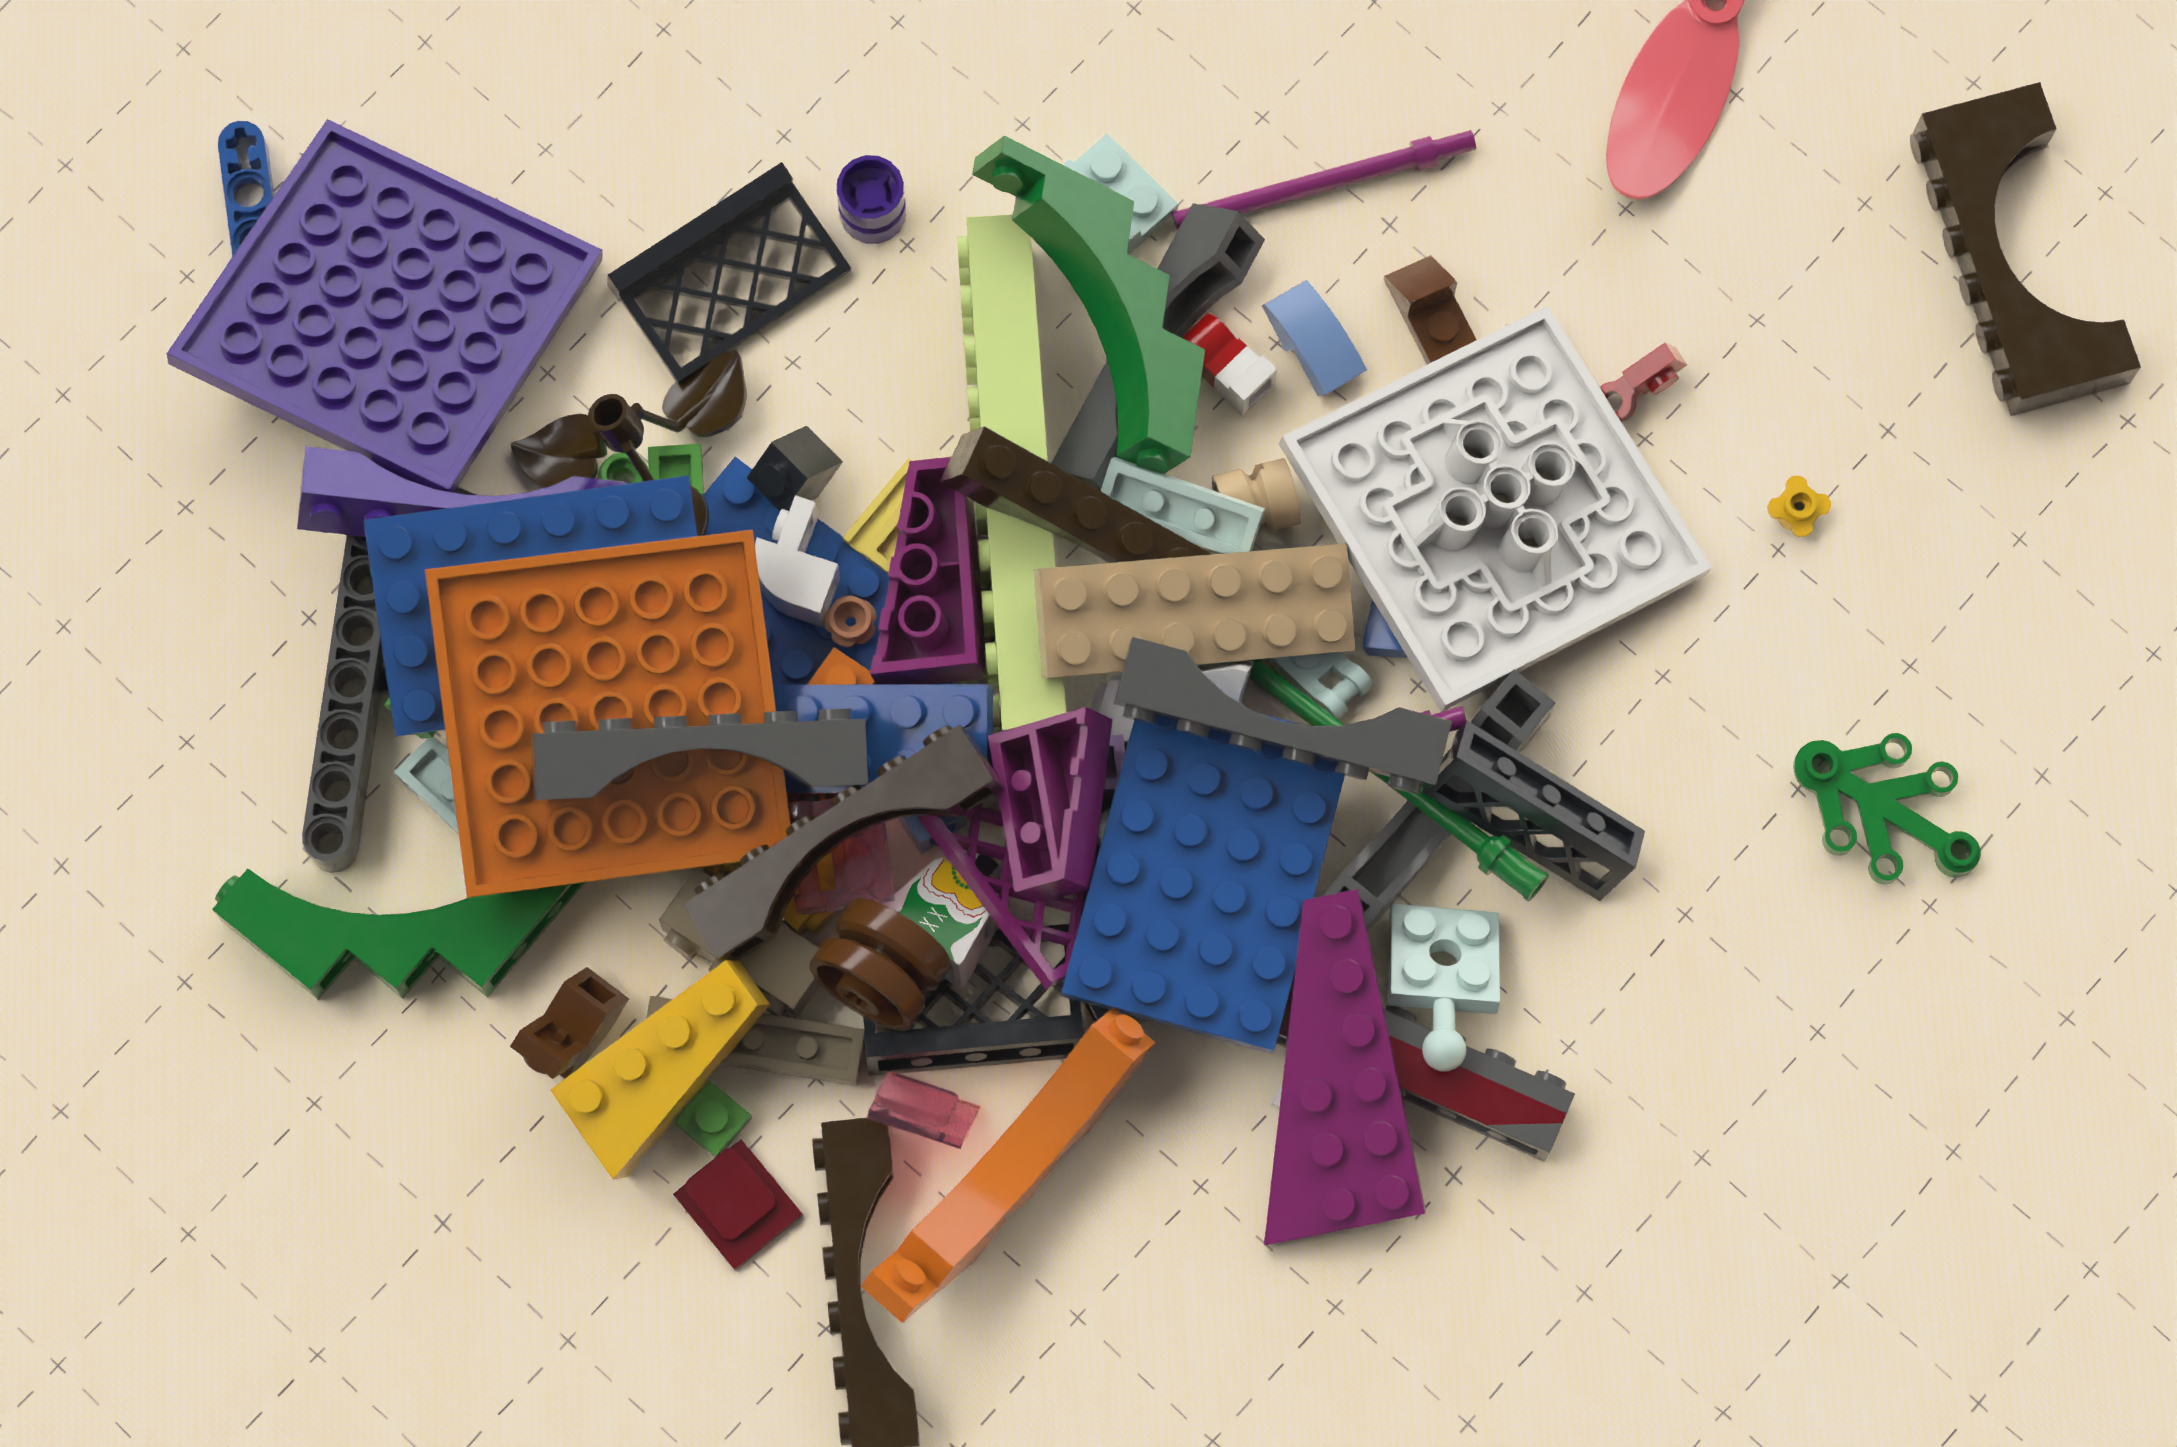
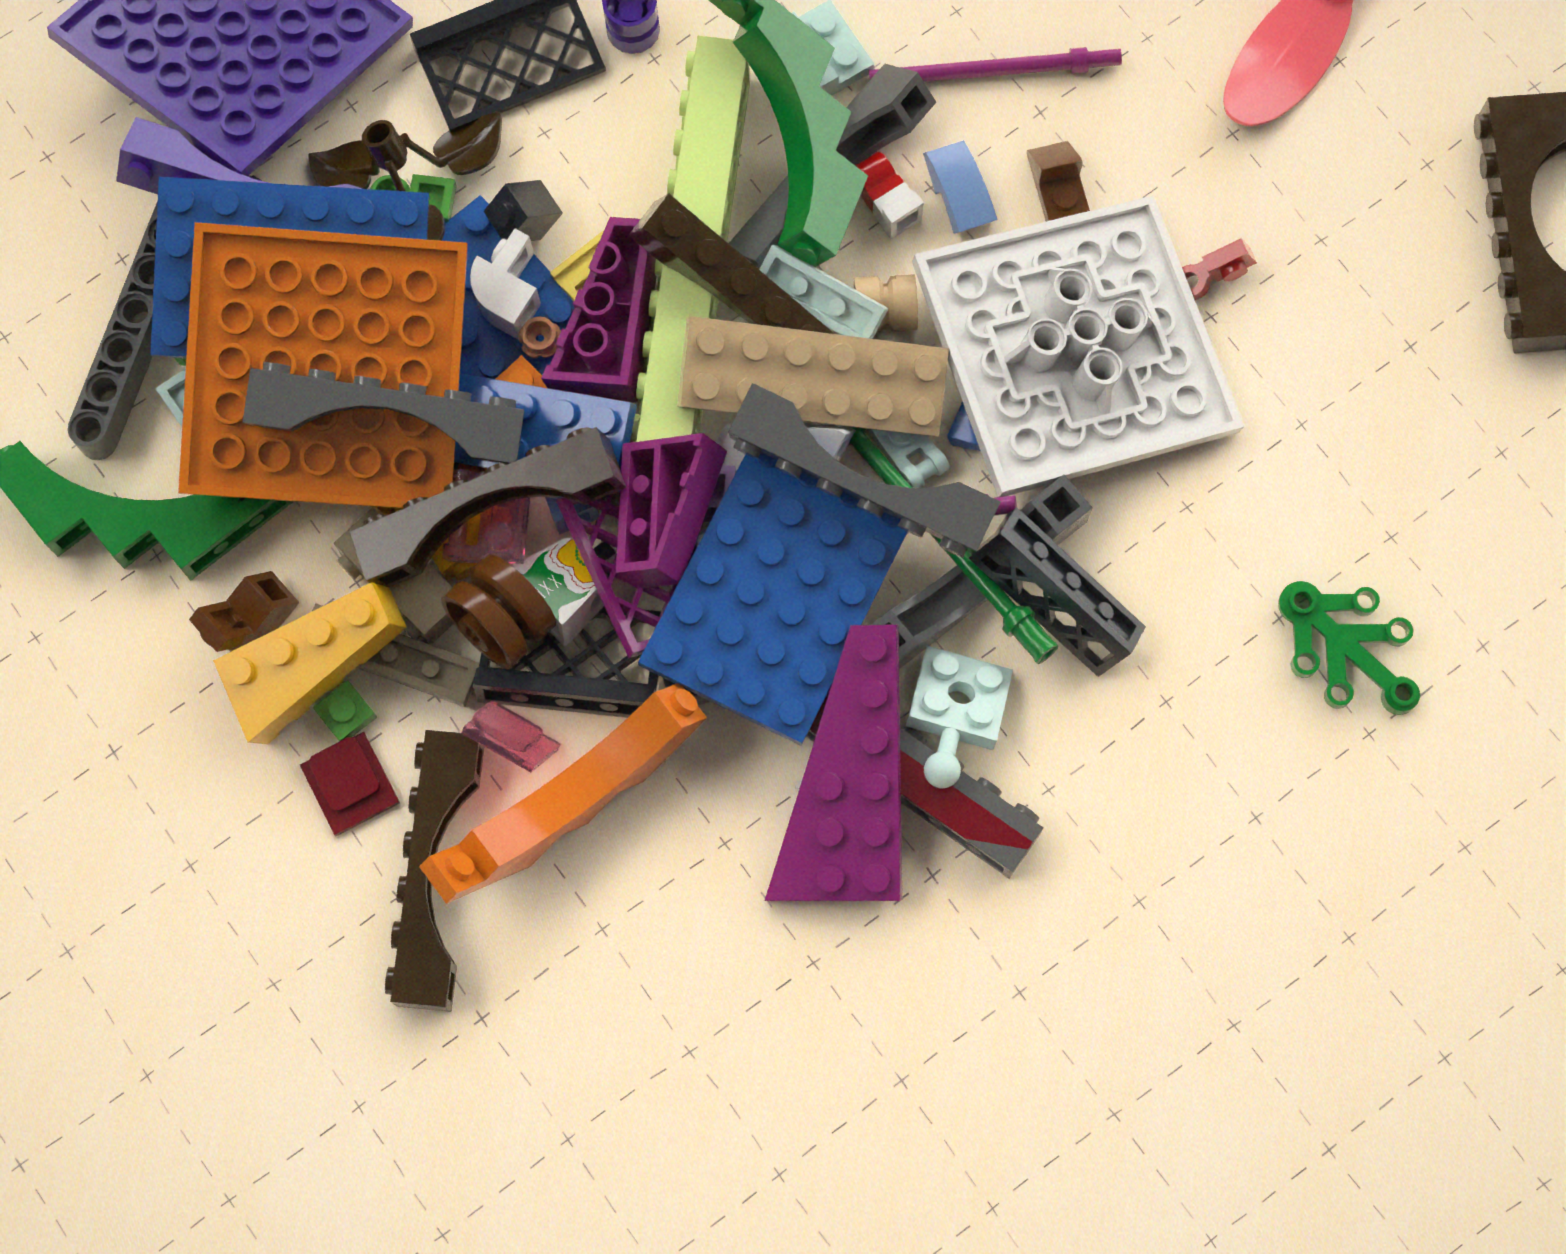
camera: 15 degrees right, 0 degrees up
(1797, 521) = (1325, 404): yellow plate -> none

